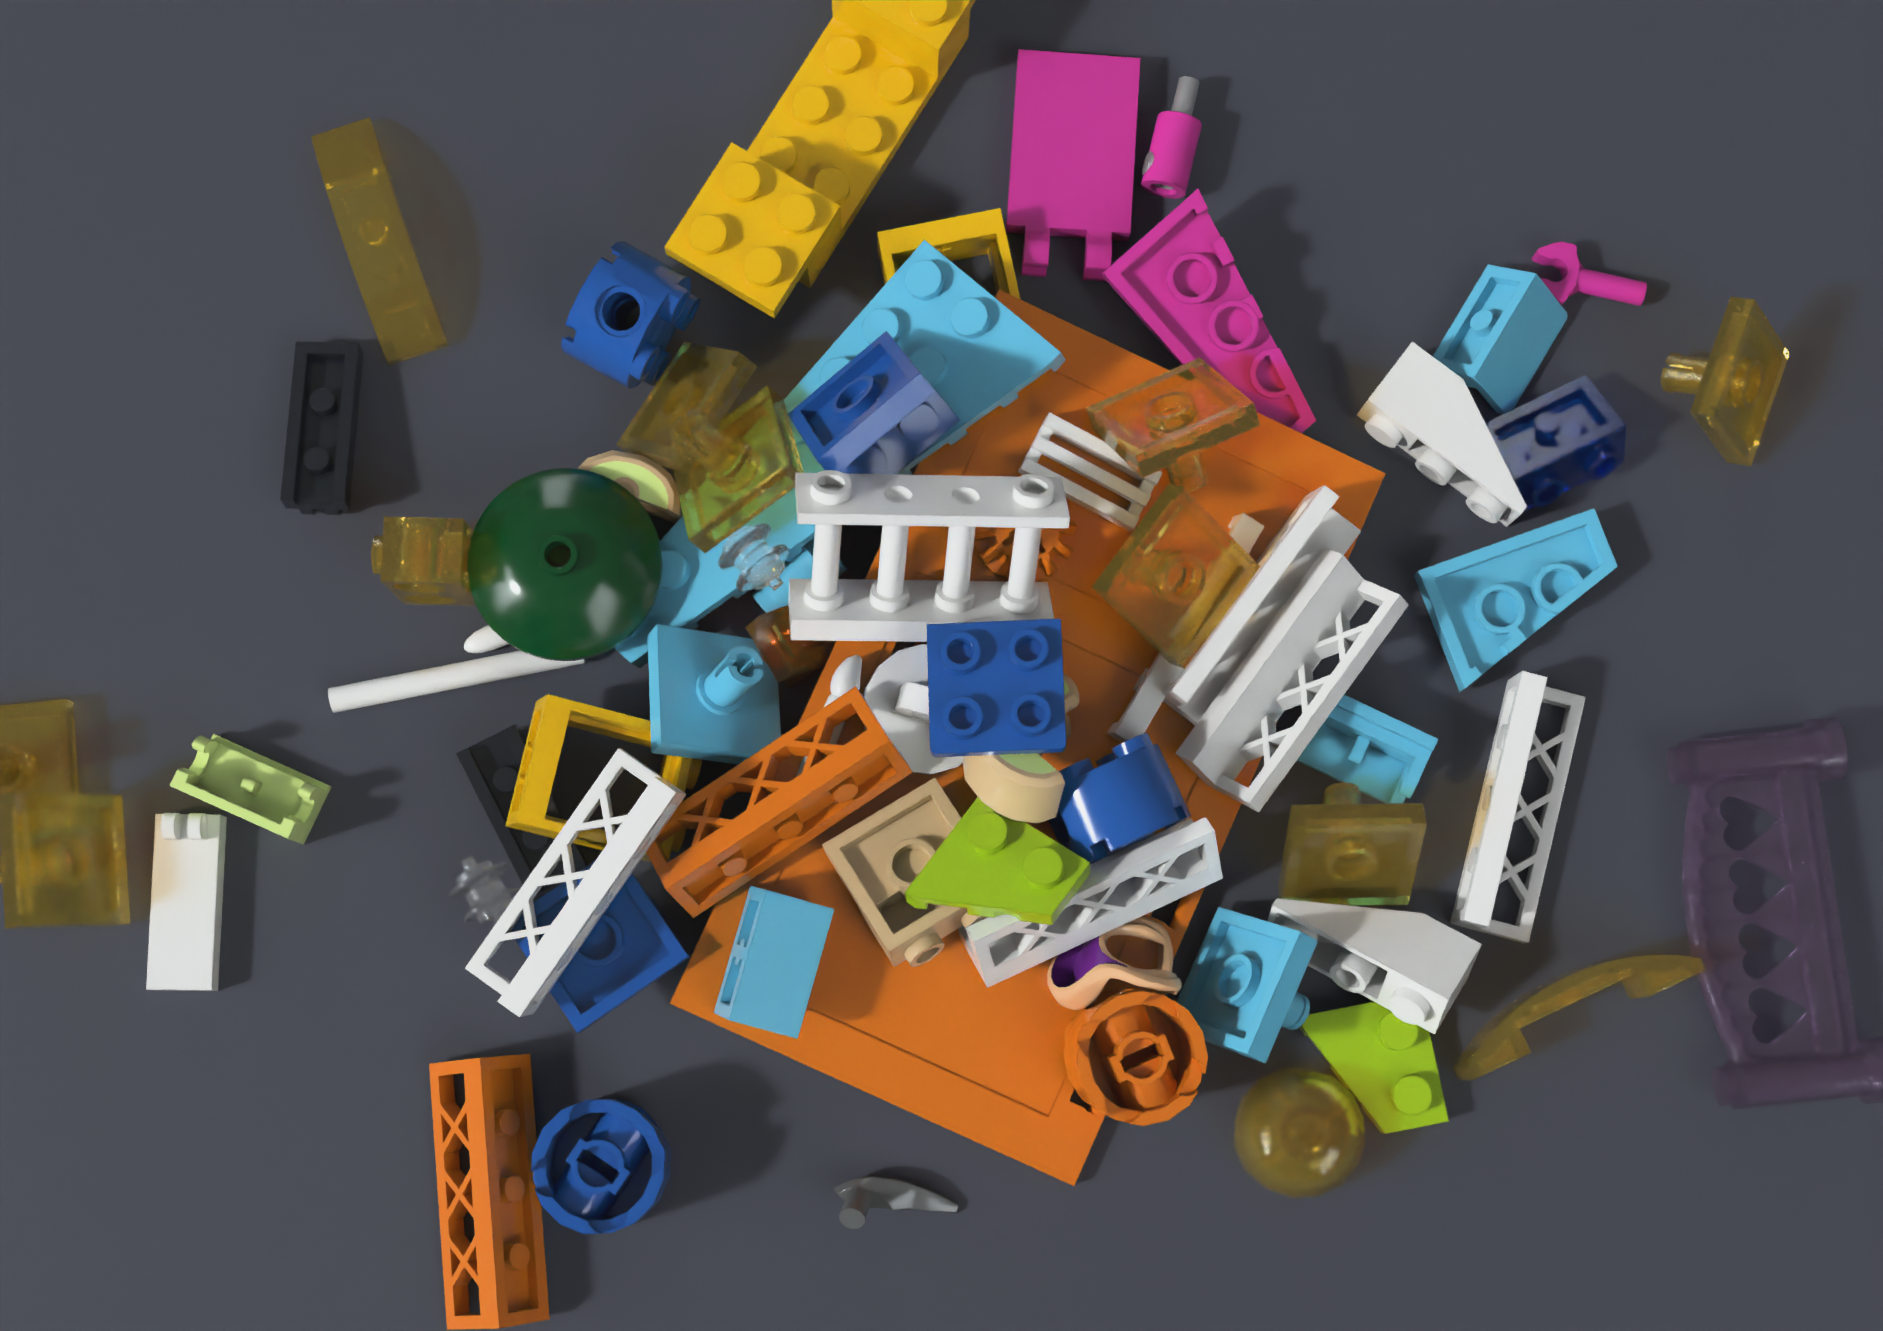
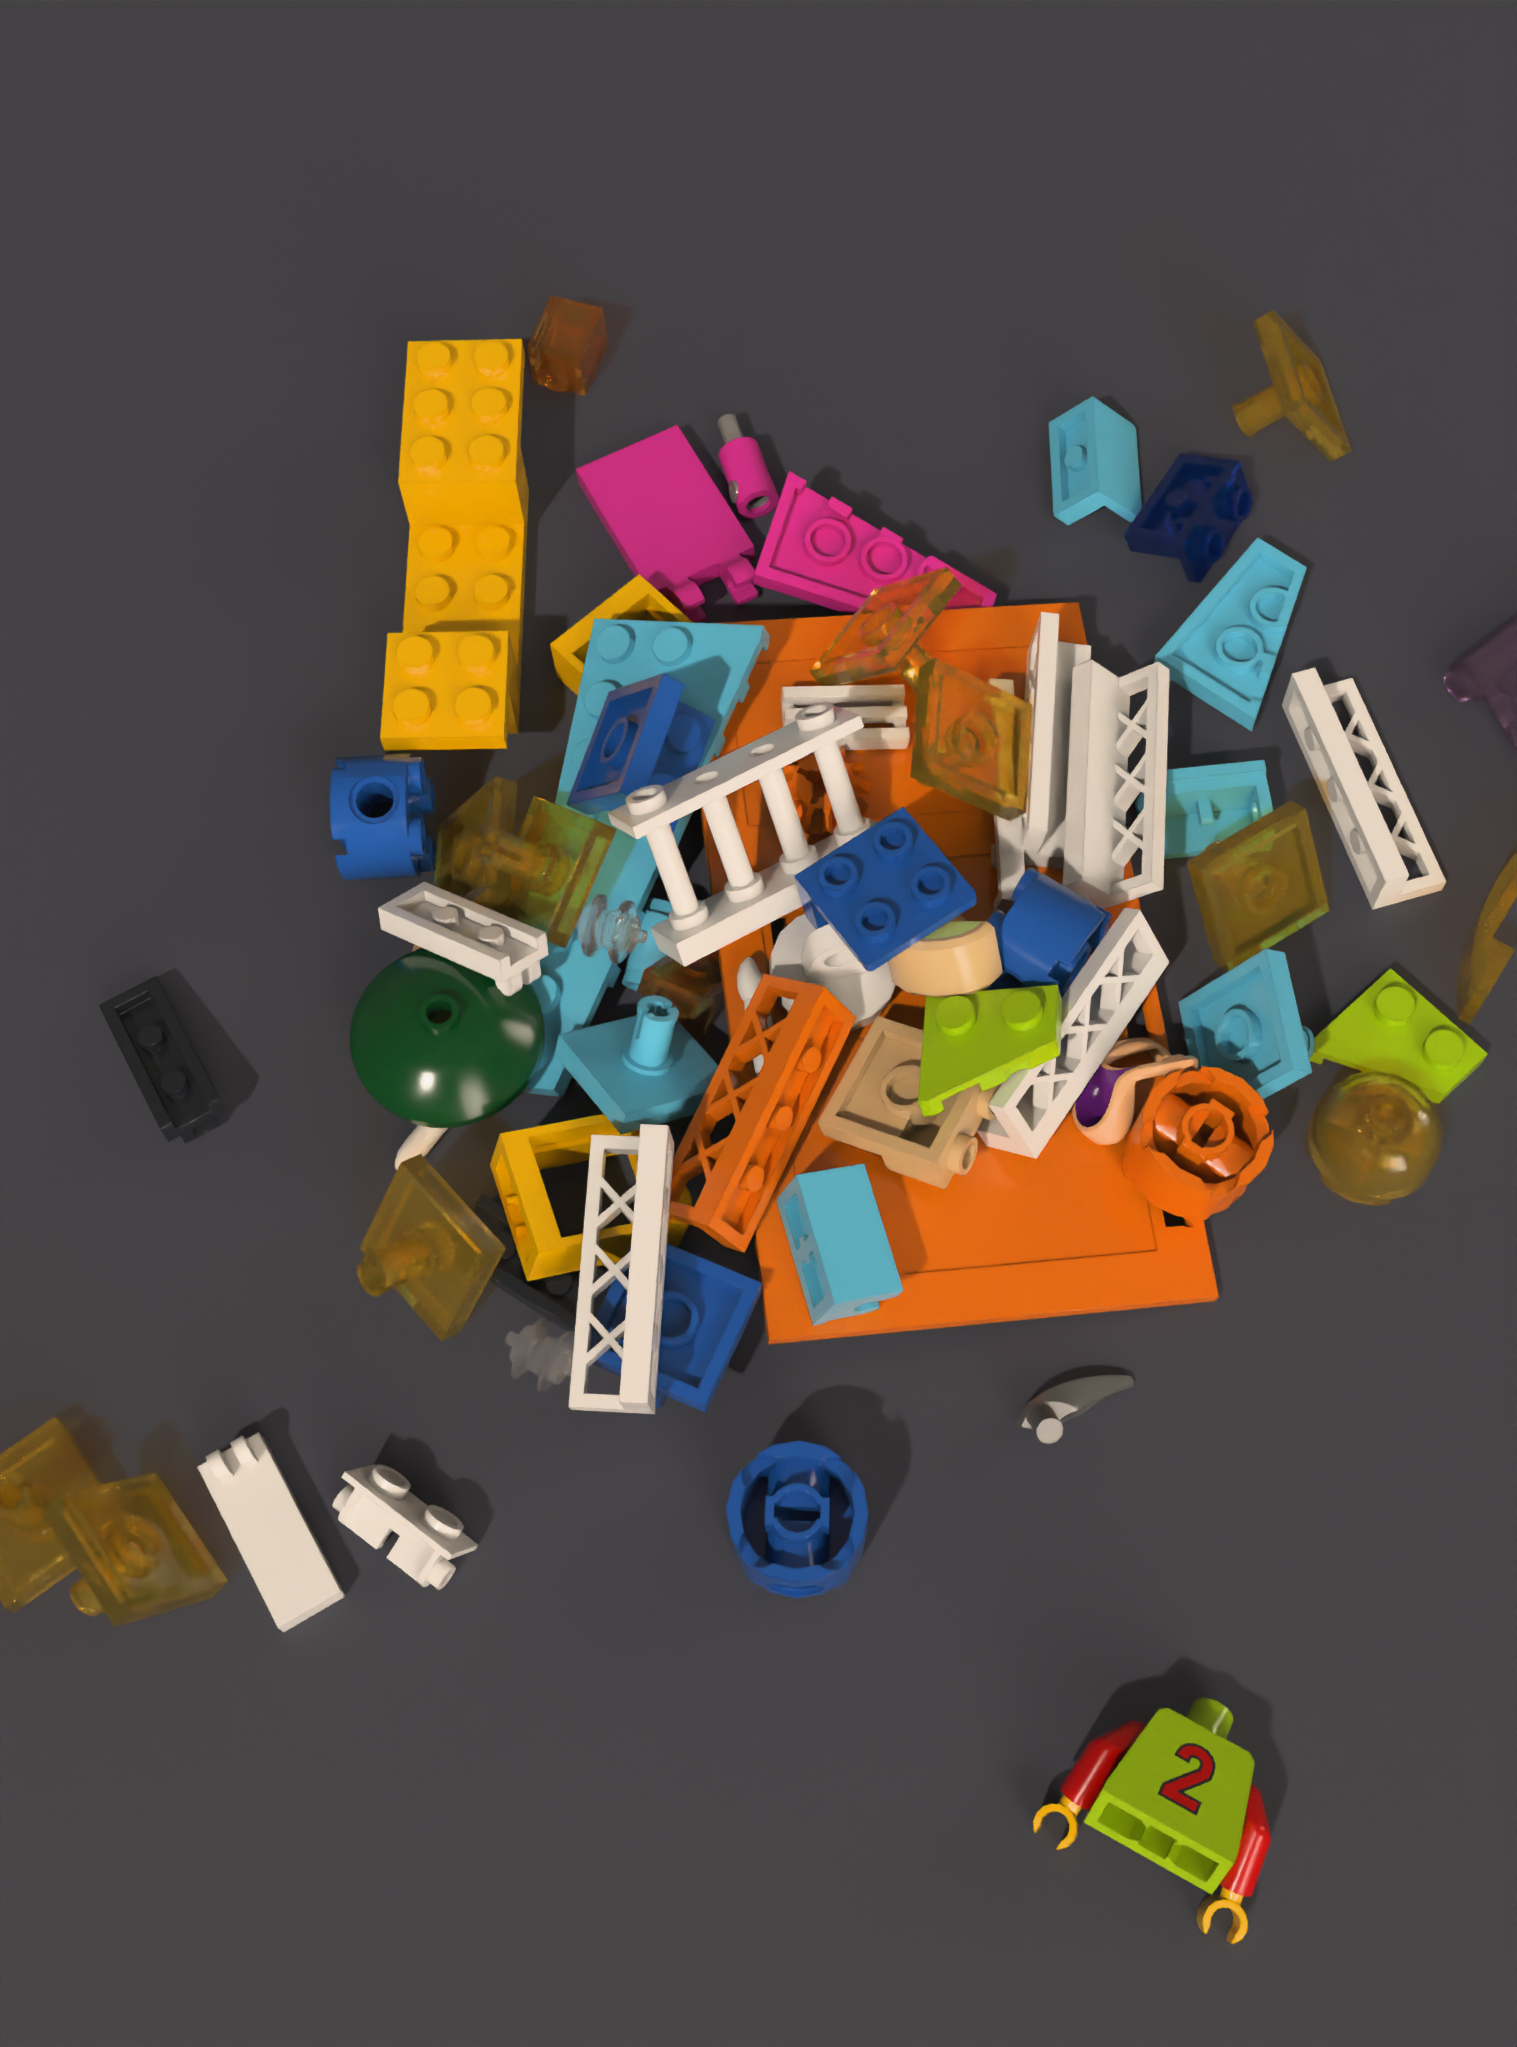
camera: 20 degrees left, 15 degrees down
(253, 787) = (275, 1395): yellowish green hinge -> none
(286, 935) = (427, 1533): none -> white hinge
(378, 241) = (129, 891): clear yellow slope -> none
(424, 560) = (325, 1100): clear yellow brick -> none
(437, 748) = (428, 1249): none -> clear yellow tile
(439, 679) = (444, 1161): white bar -> none
(497, 1192) = (715, 1606): orange fence -> none
(628, 485) = (467, 935): none -> white hinge
(1385, 955) = (1349, 948): white slope -> none
(1438, 423) = (1096, 547): white slope -> none
(1586, 281) = (1122, 398): dark pink bar -> none

